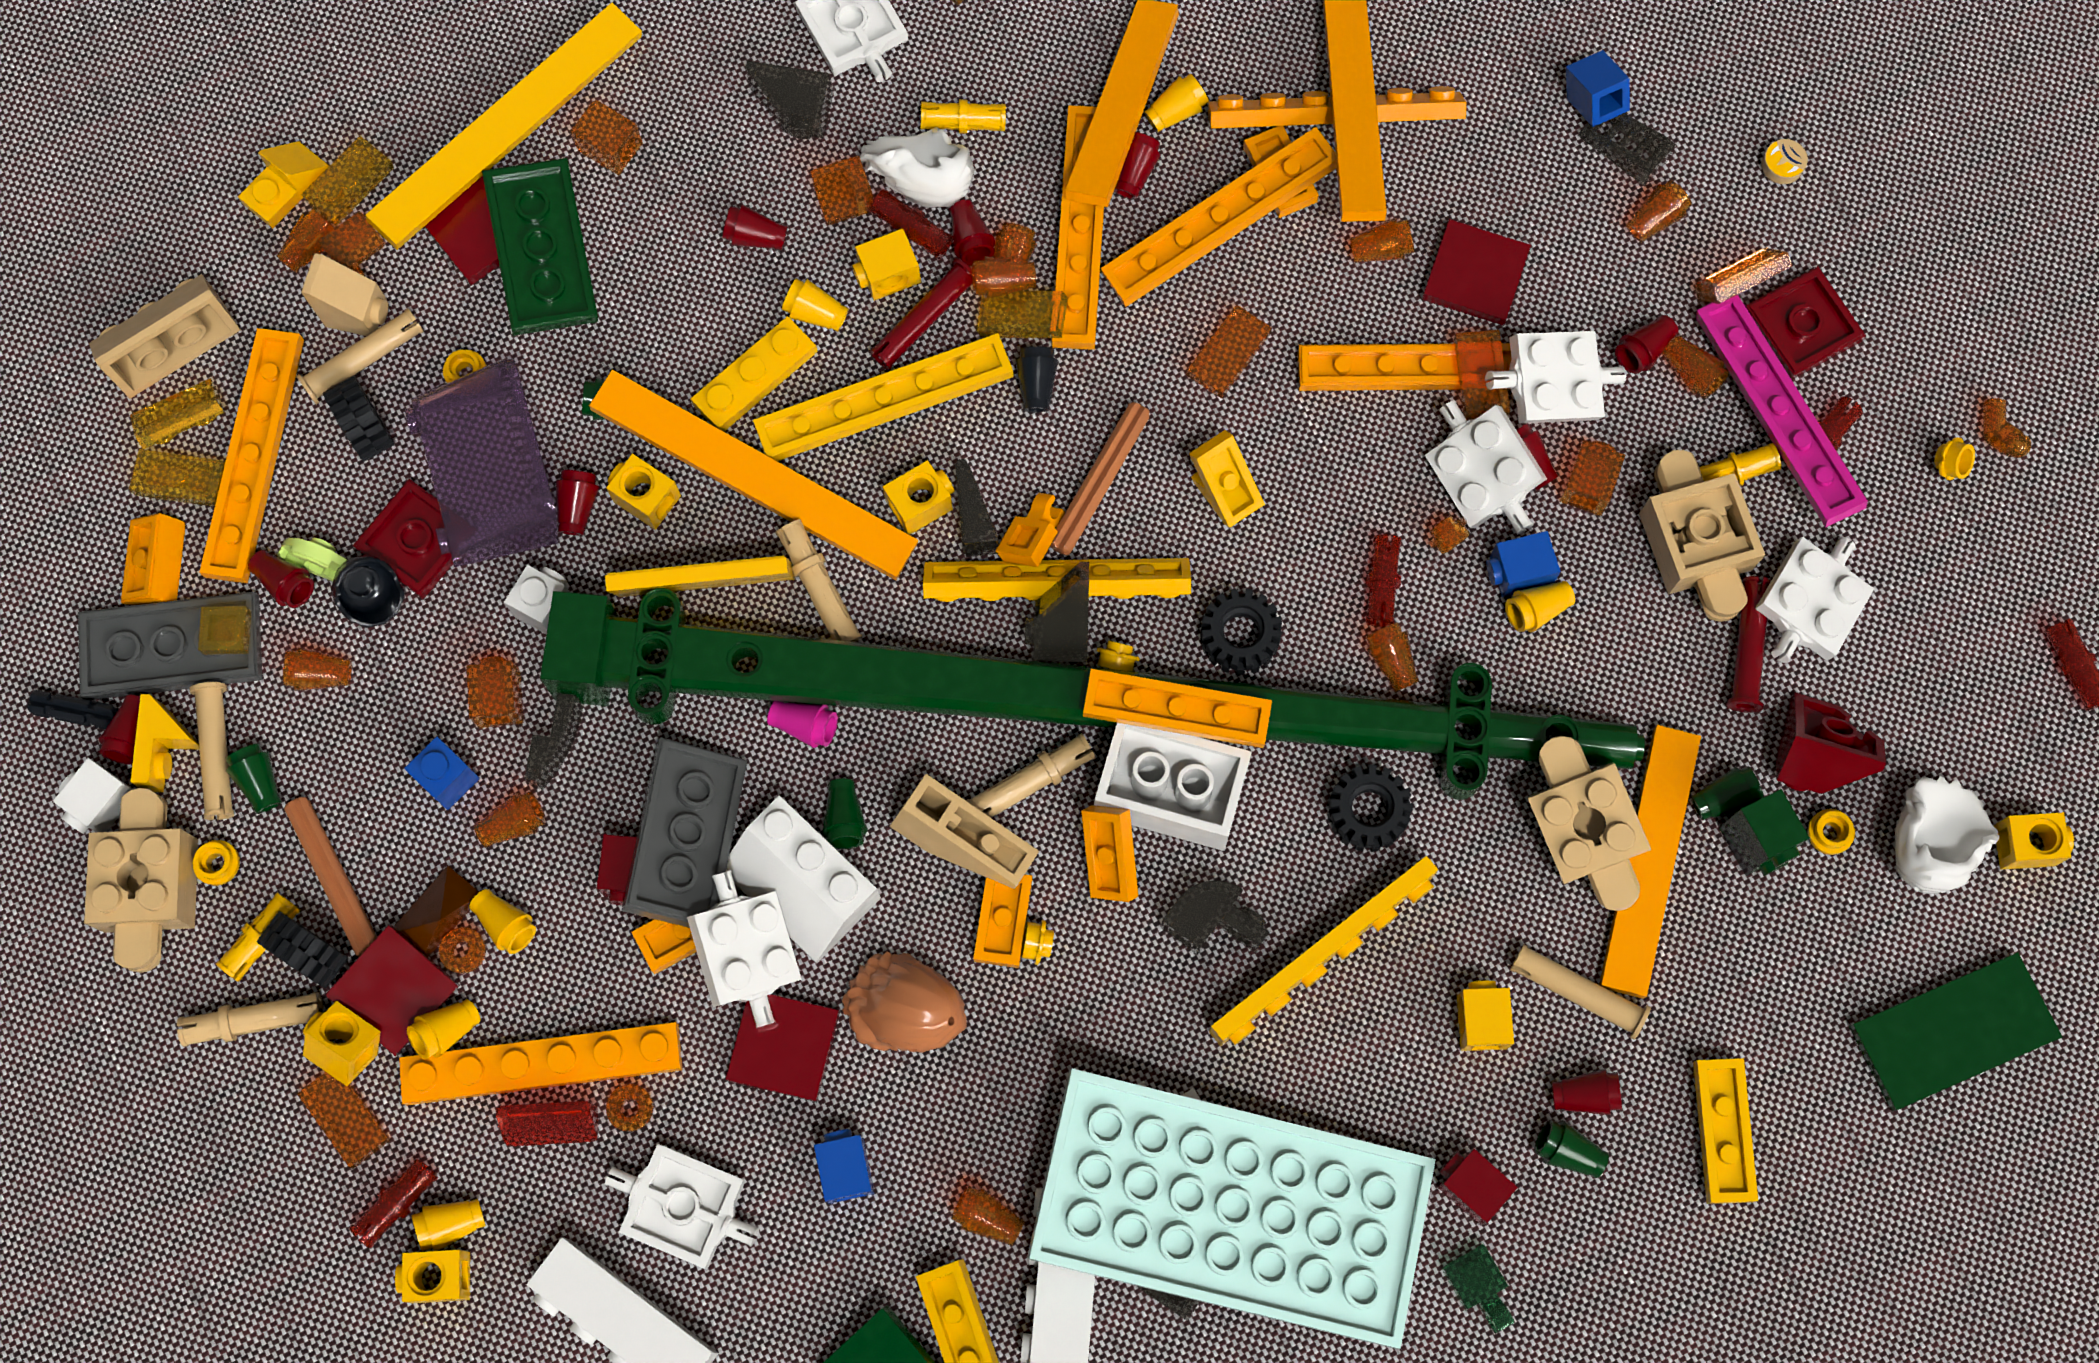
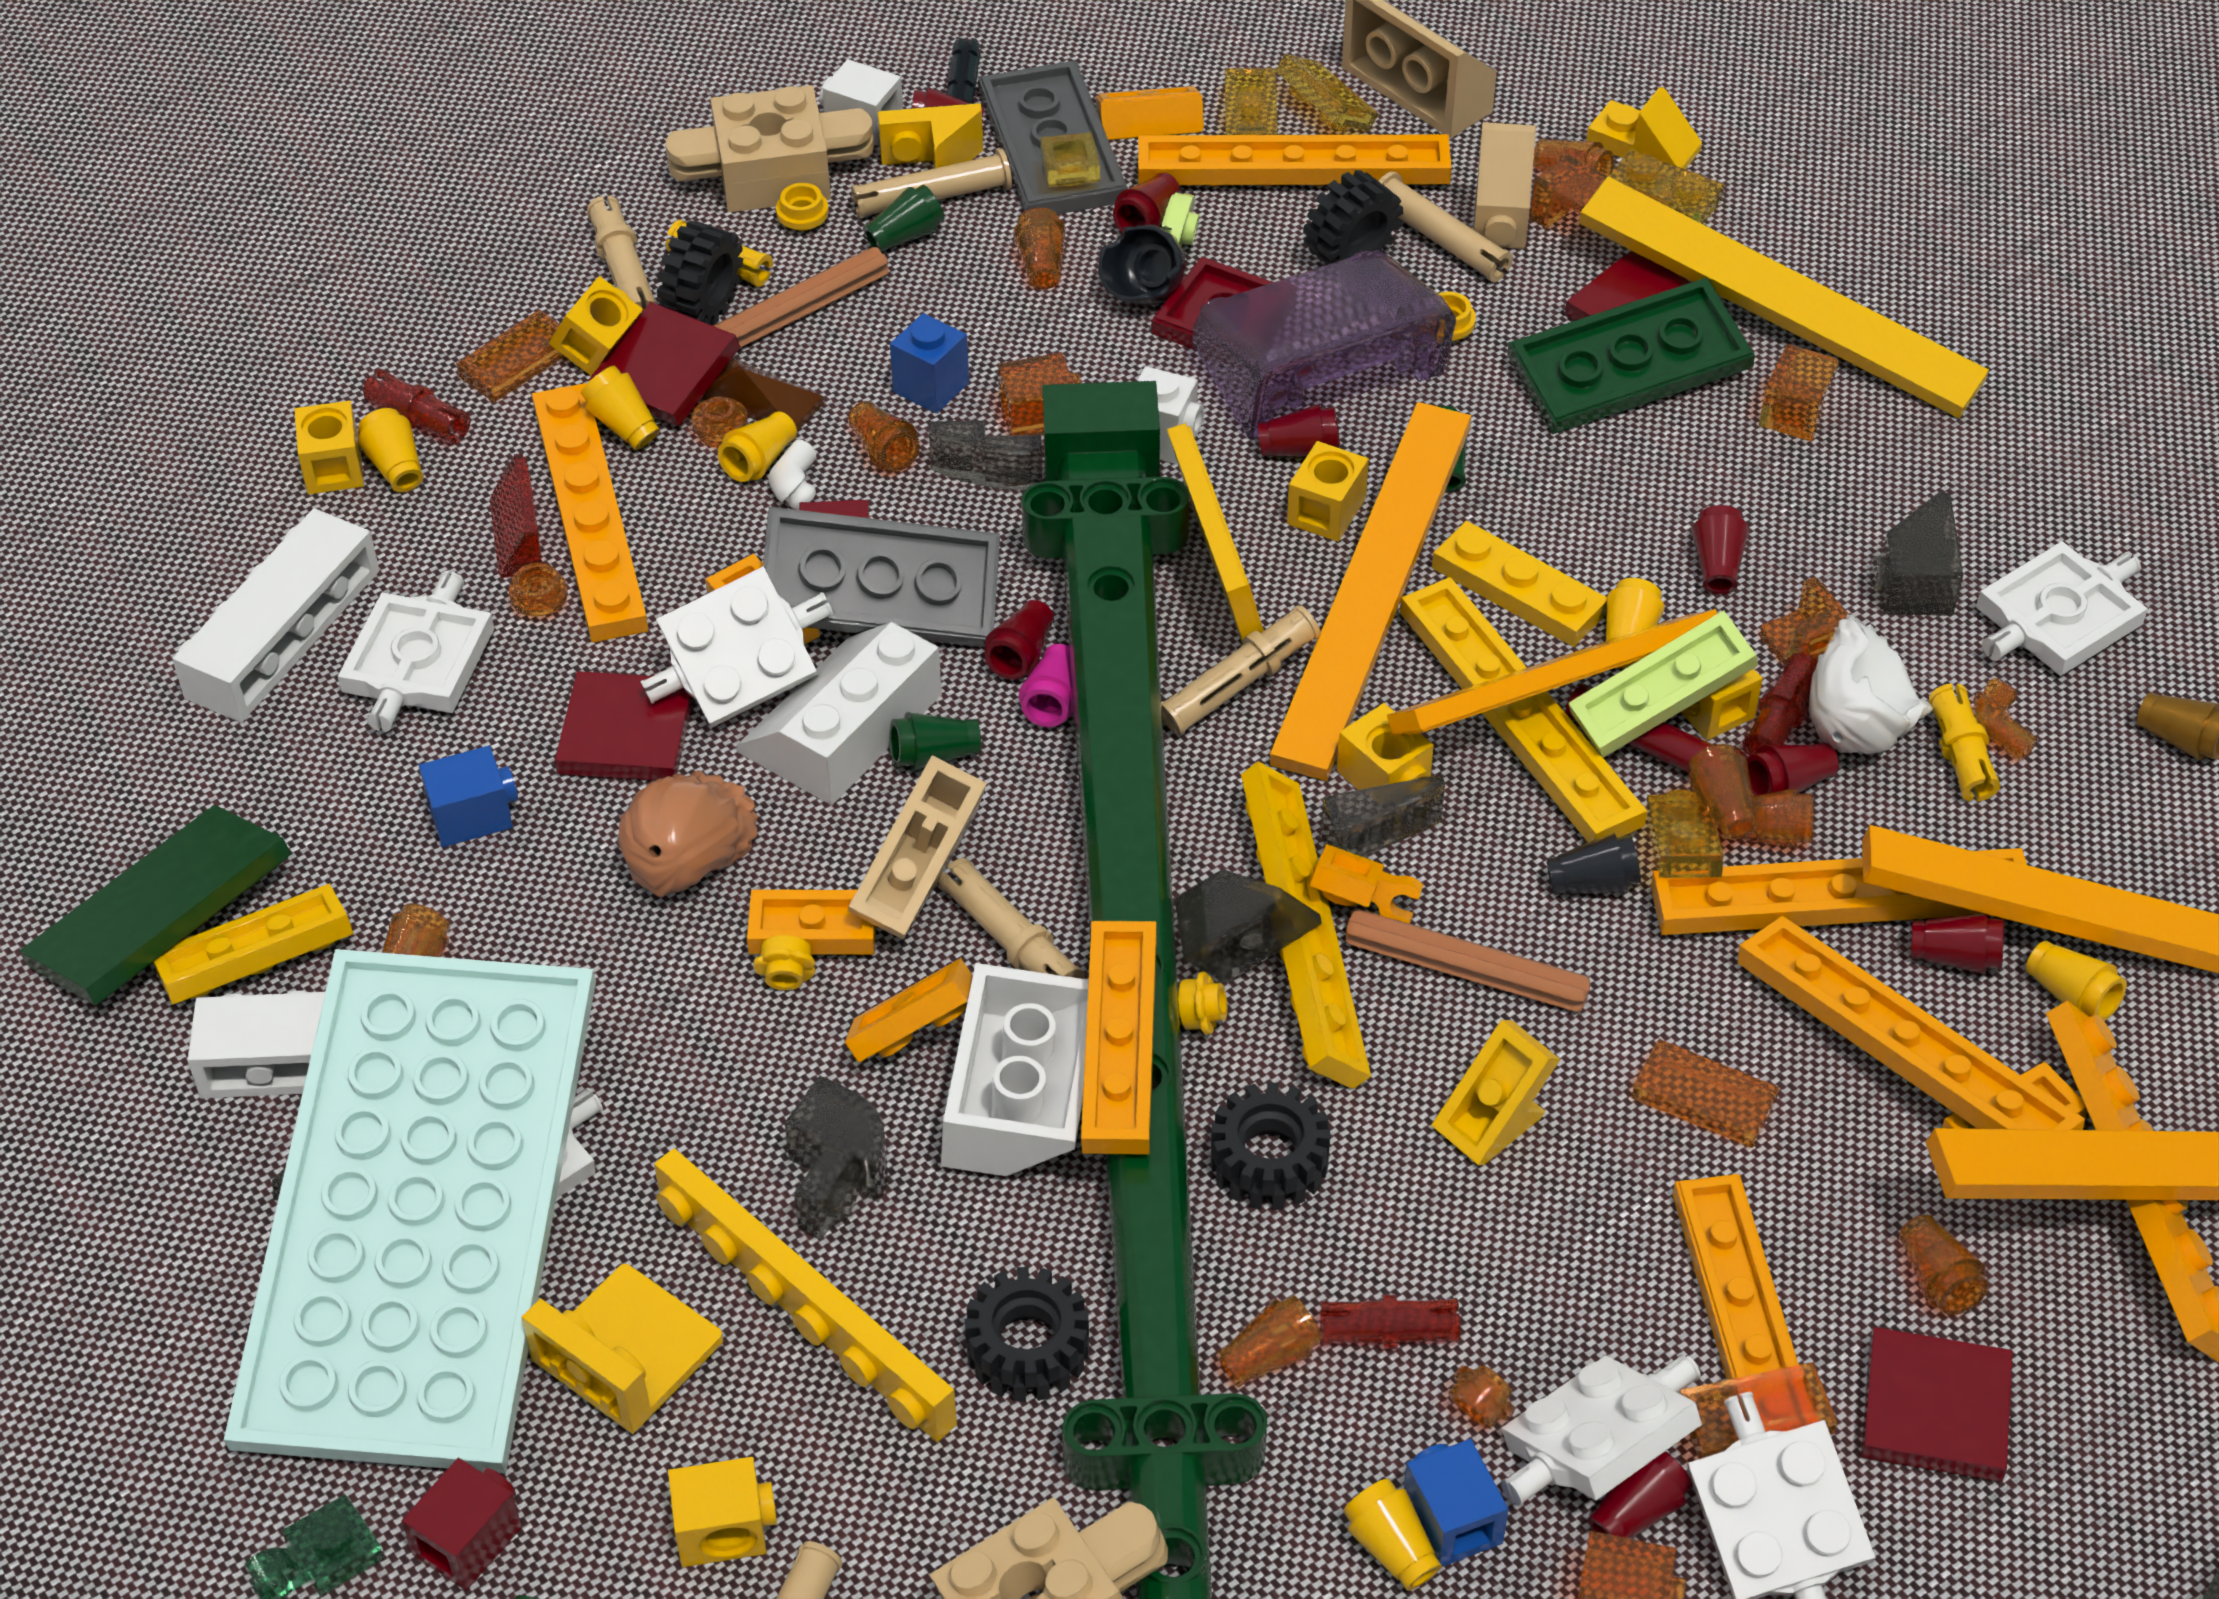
camera: 80 degrees right, 25 degrees down
(542, 900) = (788, 475): none -> white arm
(755, 740) = (1018, 642): none -> dark red cone
(880, 365) = (1541, 677): none -> light orange tile
(905, 293) = (1663, 684): none -> yellowish green plate
(944, 92) = (2001, 729): none -> clear orange arm
(1347, 1072) = (622, 1345): none -> yellow bracket

